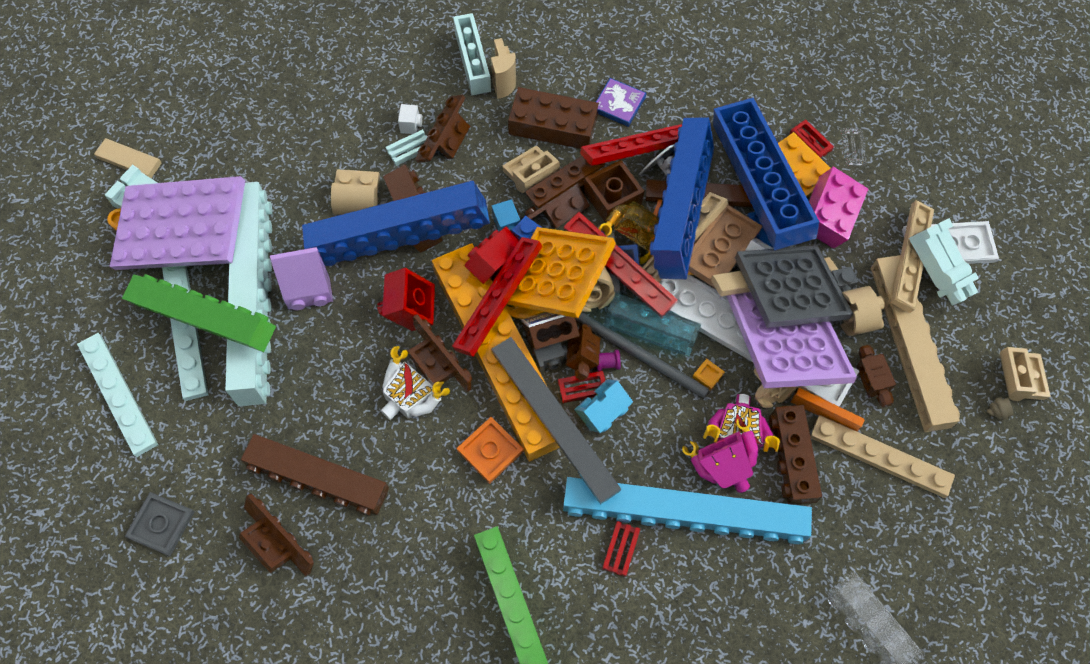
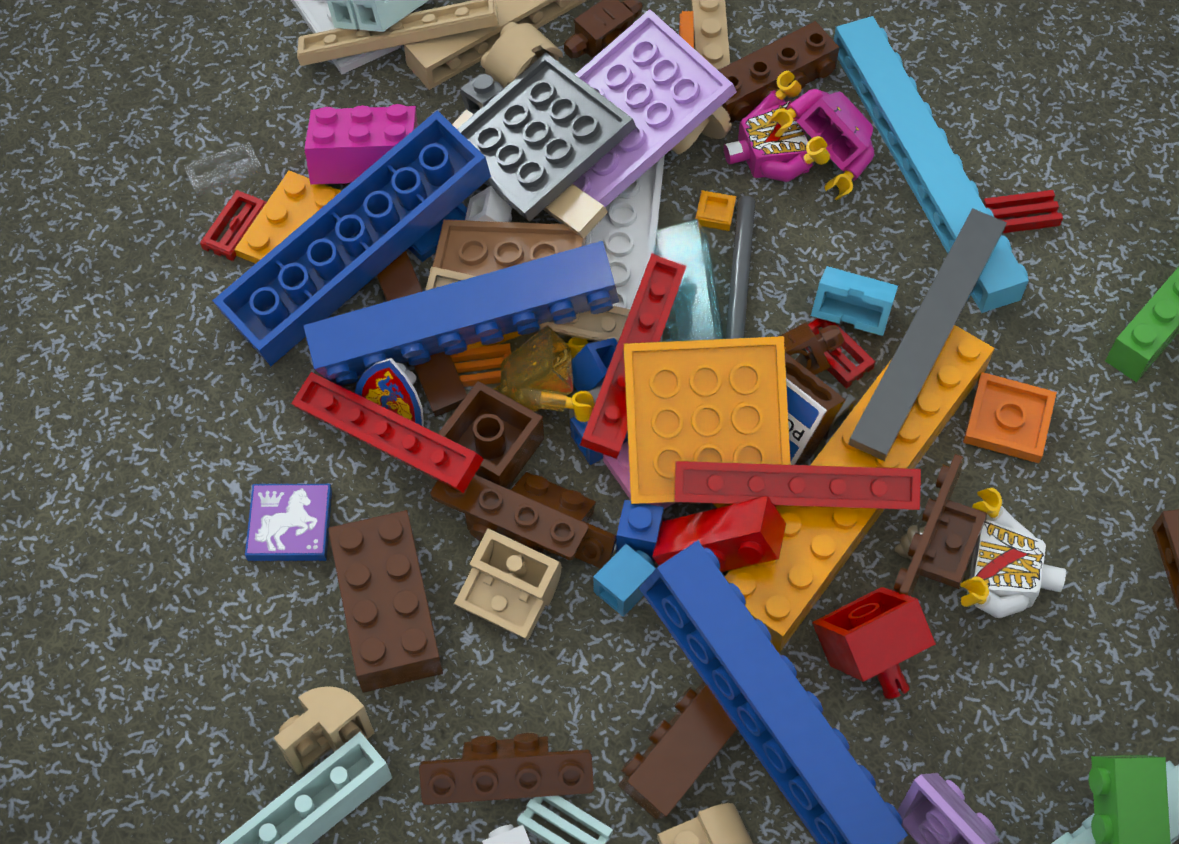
camera: 115 degrees left, 5 degrees down
(609, 360) = (772, 323): magenta bush -> none

